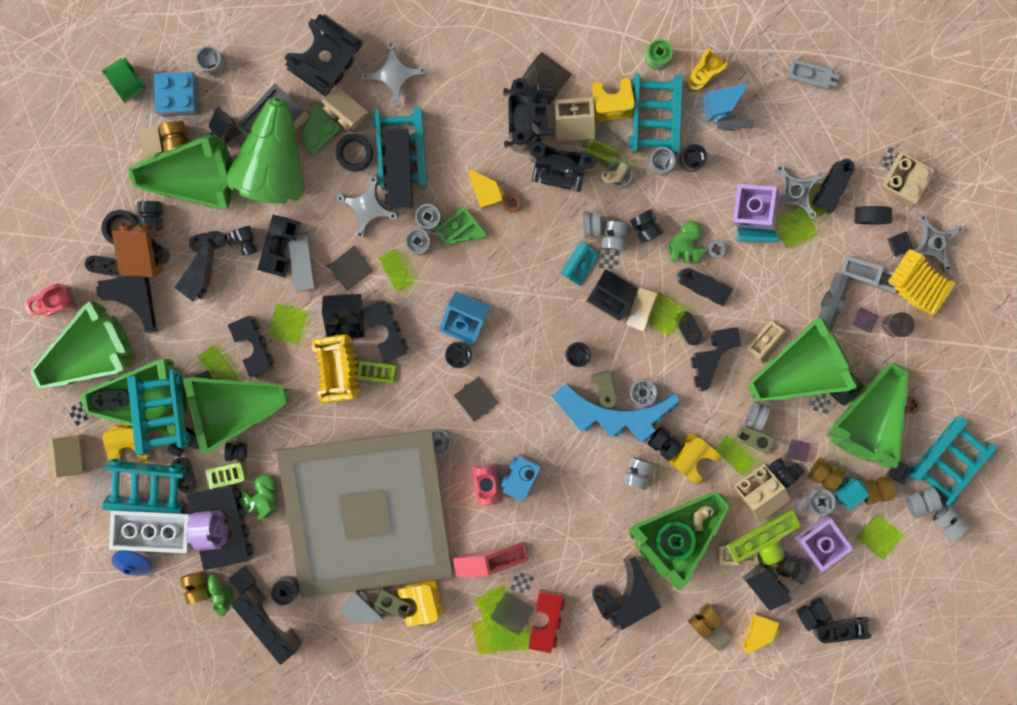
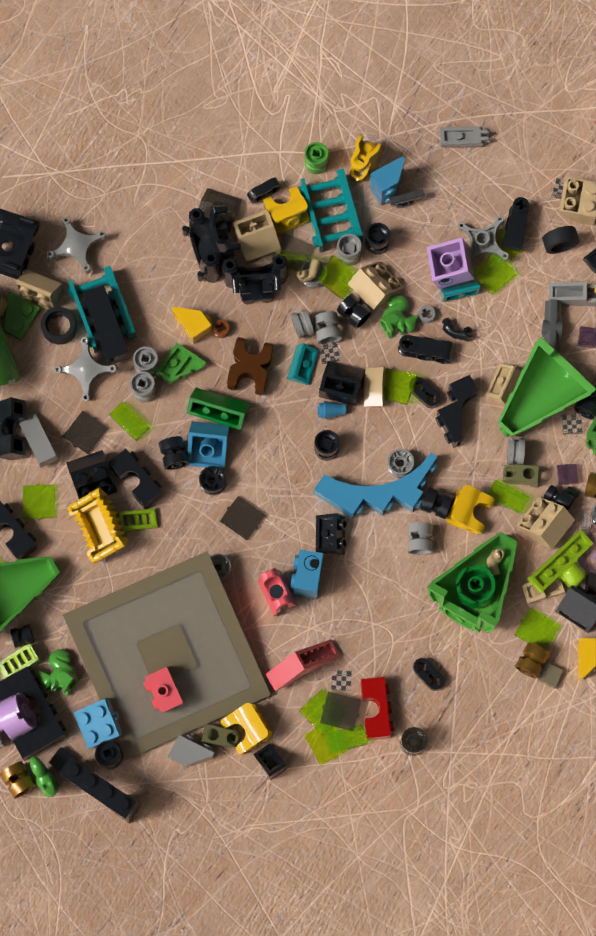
camera: 15 degrees left, 15 degrees down
(283, 558) = (98, 723): none -> dark azure plate
(352, 548) = (163, 690): none -> coral brick
(425, 311) = (173, 453): none -> black wheel
(433, 640) = (270, 761): none -> black slope
(484, 286) = (218, 408): none -> green brick
(528, 251) = (250, 366): none -> reddish brown piece
(554, 442) = (331, 534): none -> black bracket
(570, 663) = (413, 741): none -> clear smoke wheel
(590, 318) = (330, 409): none -> dark azure cone
(596, 72) = (264, 190): none -> black beam
(607, 394) = (362, 468): olive leg -> none
(637, 599) = (459, 657): black arch -> none
(641, 186) = (336, 277): none -> clear neon green piece
(675, 205) = (375, 285): none -> tan slope
(719, 590) = (537, 629): none -> clear neon green piece
(735, 276) = (450, 330): none -> black piece

